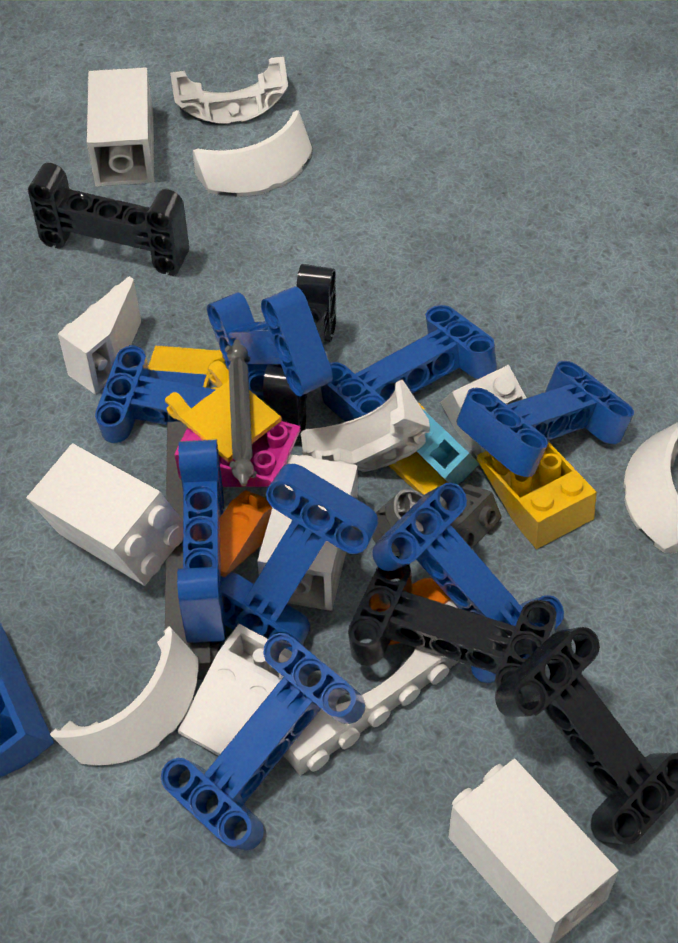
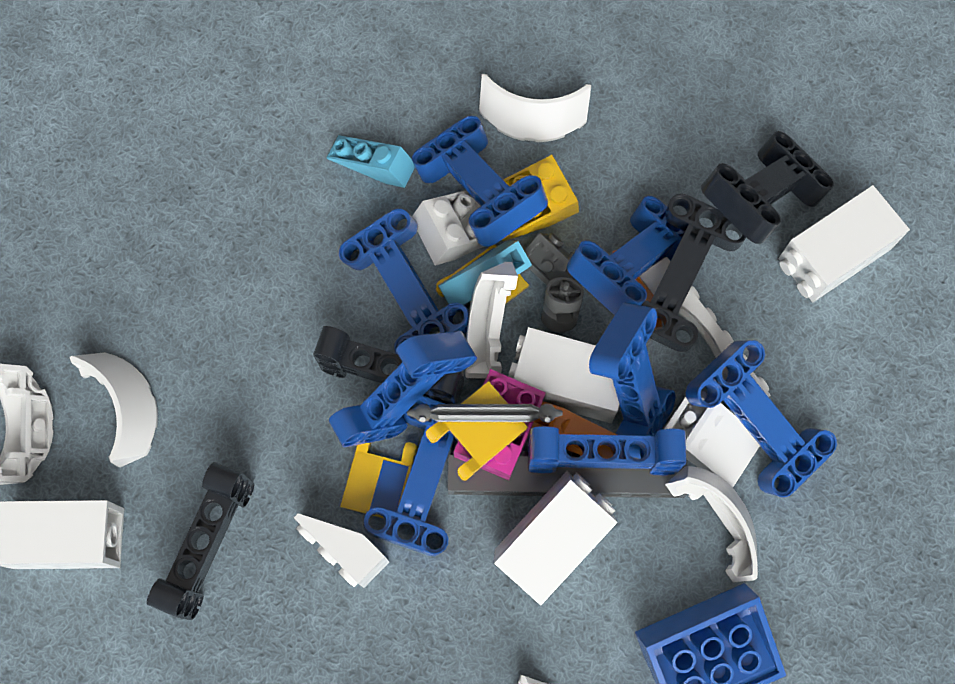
camera: 85 degrees left, 20 degrees up
(561, 334) = (374, 159): none -> medium azure slope

